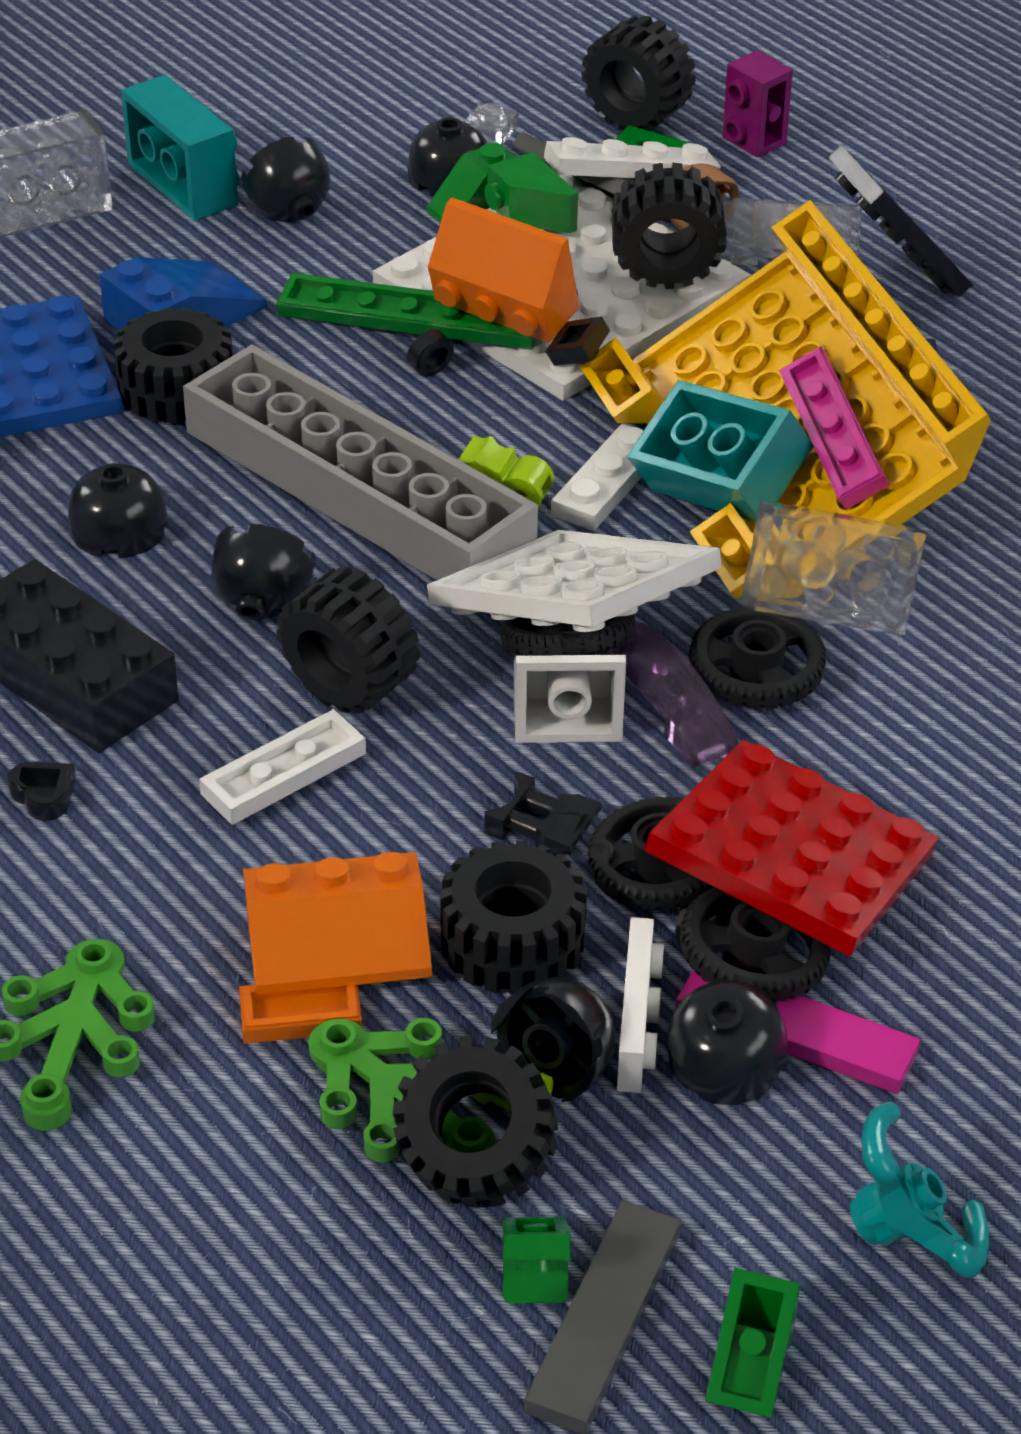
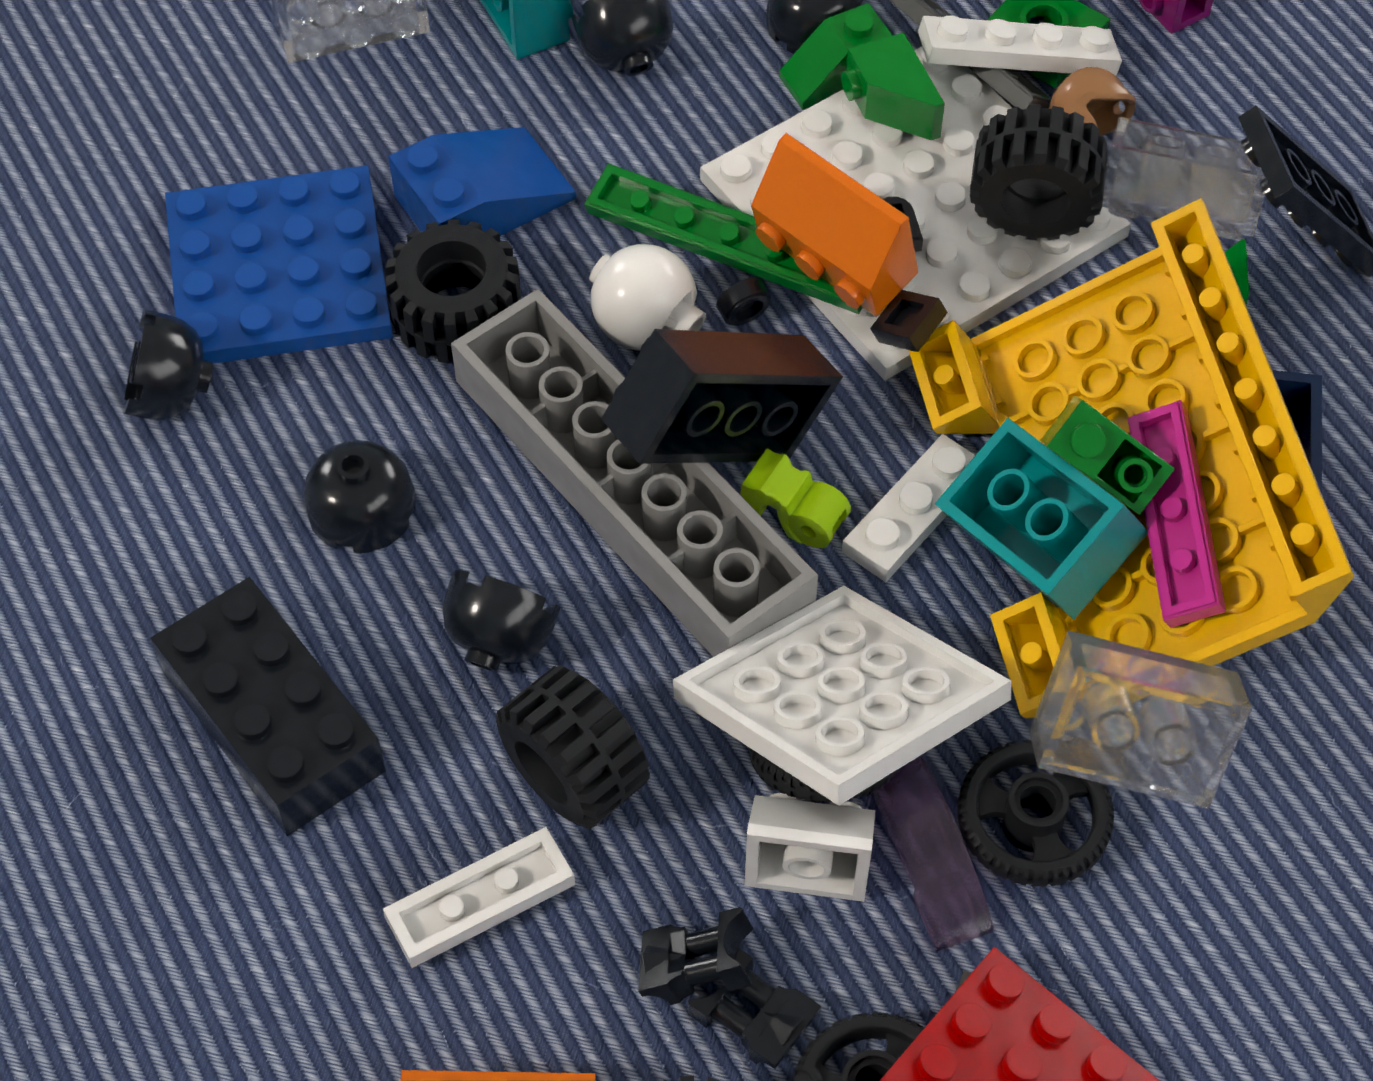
camera: 10 degrees right, 15 degrees up
(42, 788) = (217, 883): black tile -> none
(346, 348) = (641, 292): none -> white brick
(428, 384) = (719, 396): none -> black brick
(469, 787) = (670, 955): none -> black piece
(769, 381) = (1107, 454): none -> green slope

